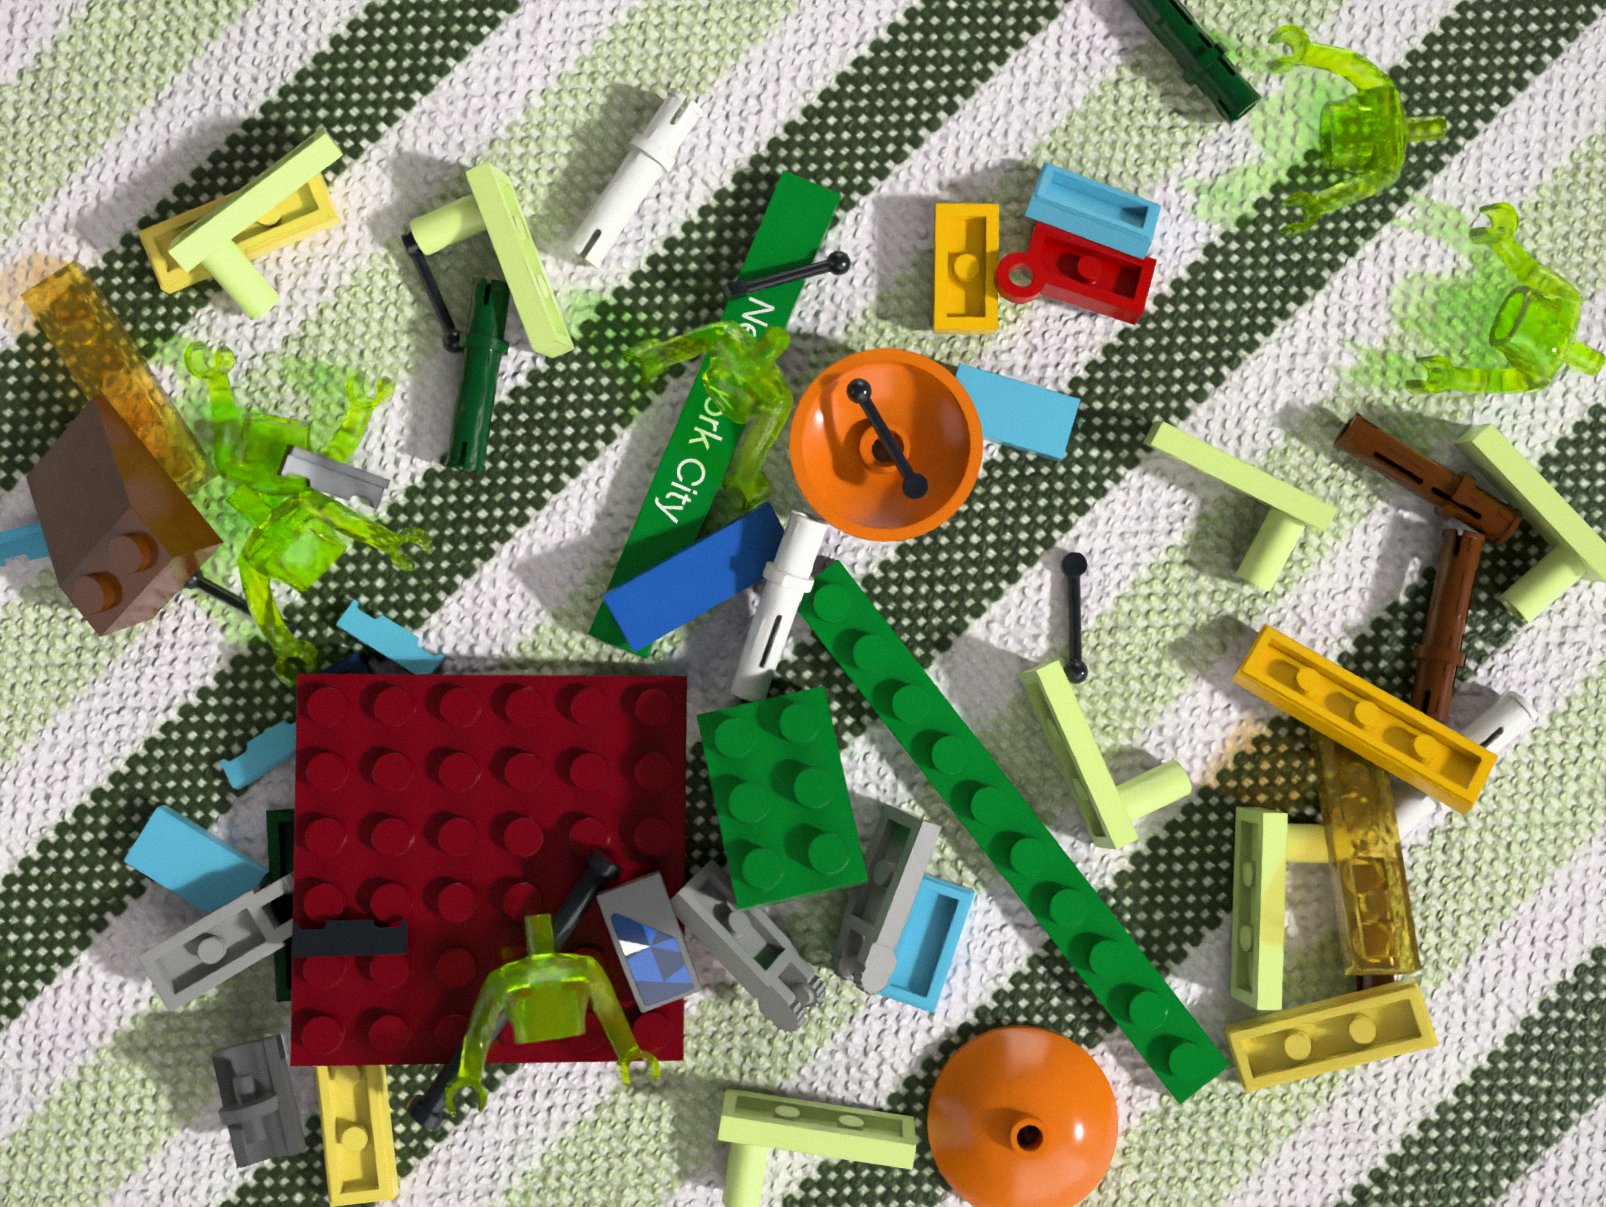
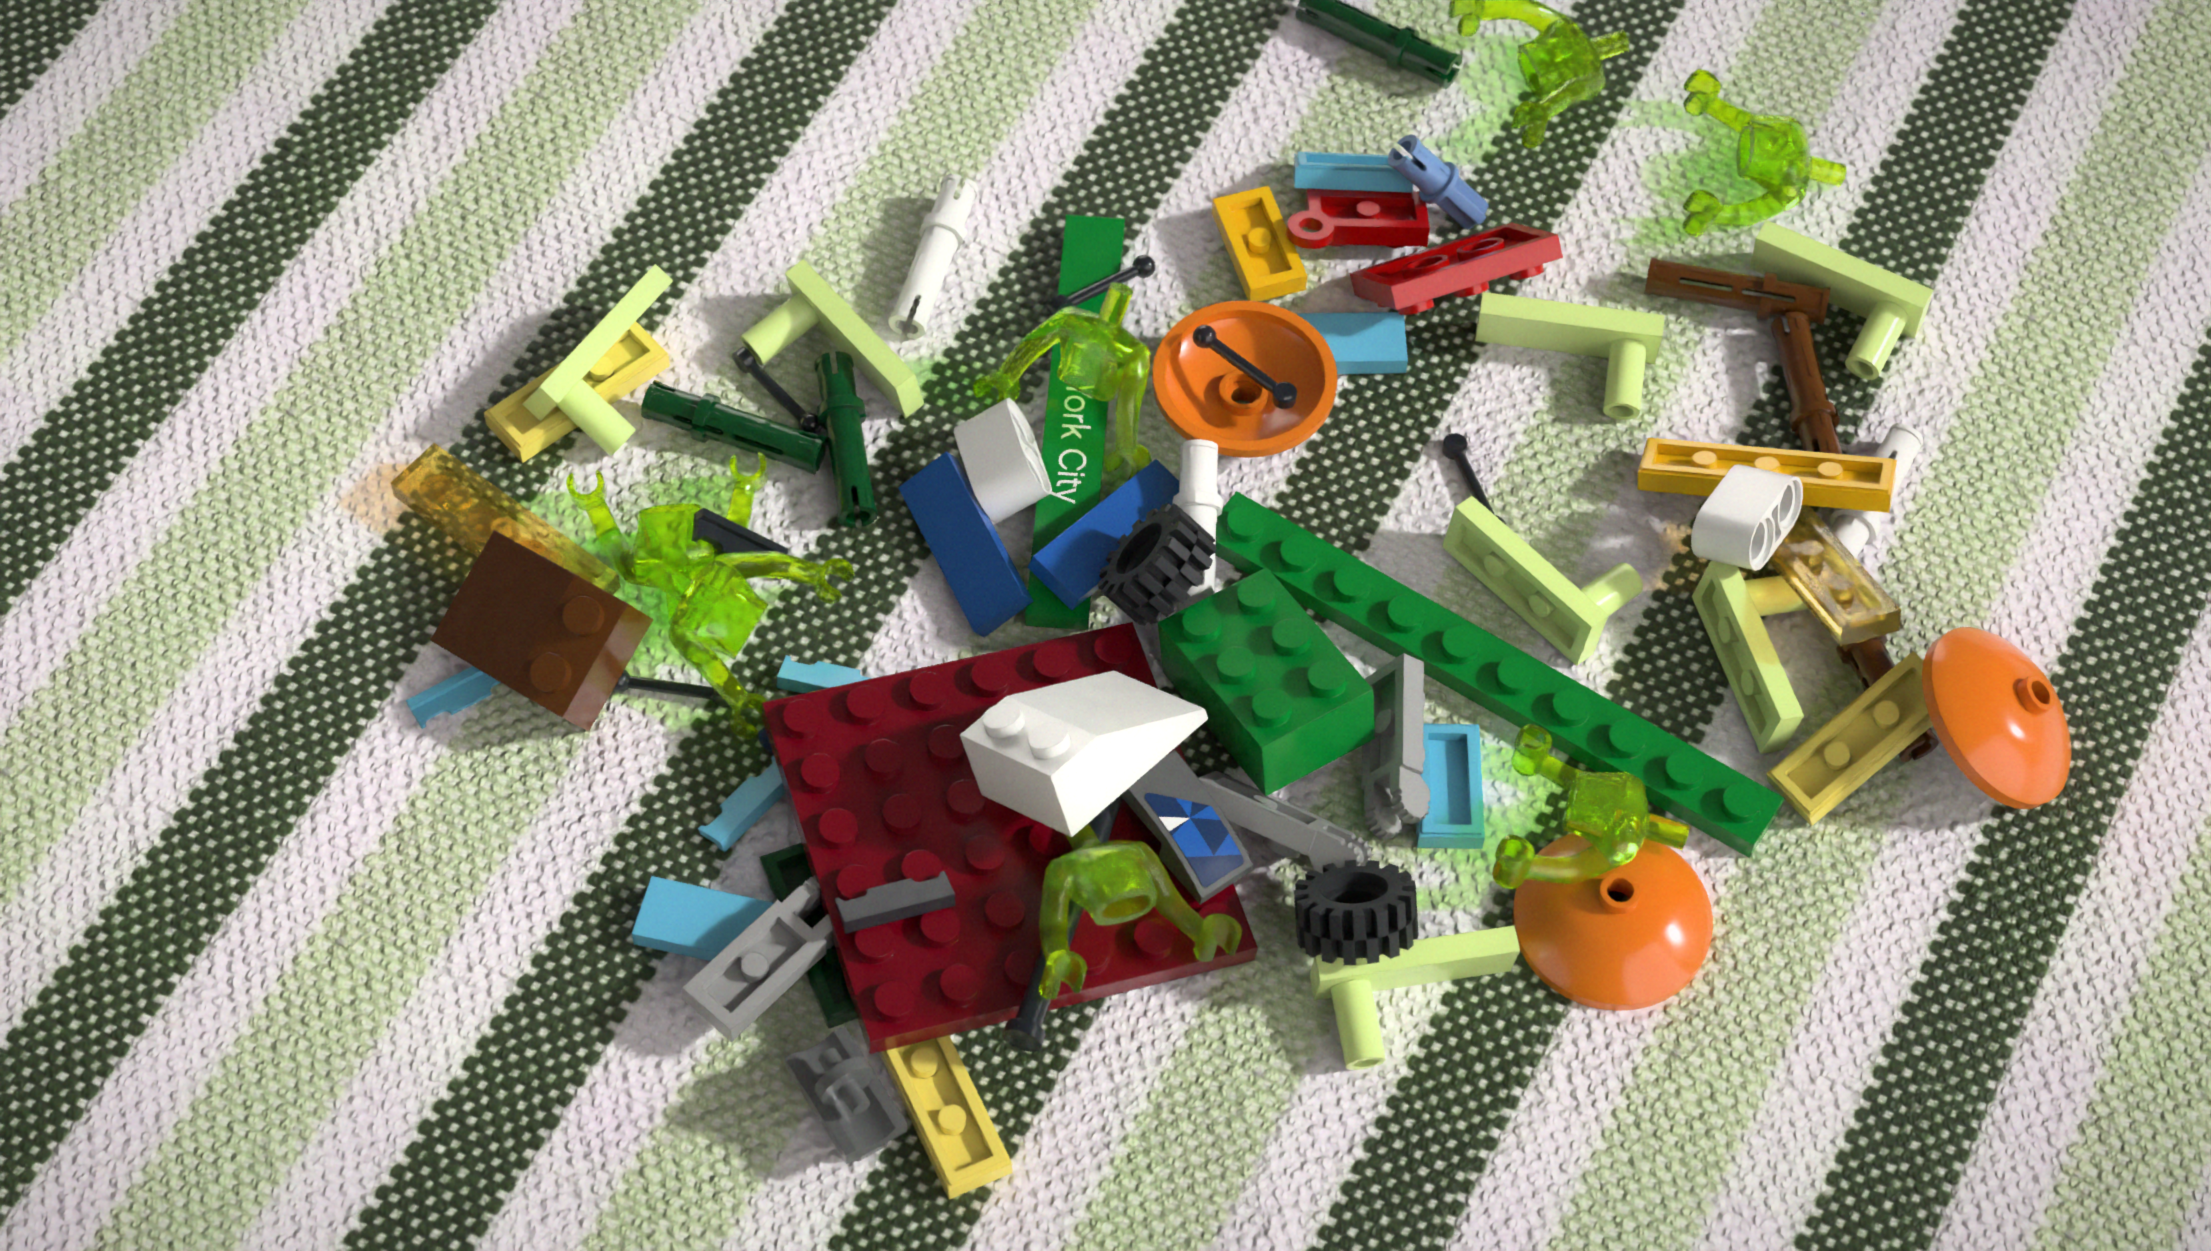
camera: 20 degrees left, 30 degrees down
(353, 311) = (710, 419): none -> dark green pin
(555, 536) = (965, 545): none -> blue tile
(570, 841) = (1075, 745): none -> white slope
(617, 459) = (1002, 460): none -> white beam
(715, 654) = (1157, 564): none -> black tyre
(766, 1127) = (1356, 912): none -> black tyre
(1045, 1048) = (1600, 807): none -> clear neon green piece
(1151, 374) = (1457, 267): none -> red plate
(1171, 261) = (1439, 182): none -> medium blue axle
(1317, 789) = (1747, 517): none -> white beam
(1466, 1069) = (1997, 717): none -> orange dish

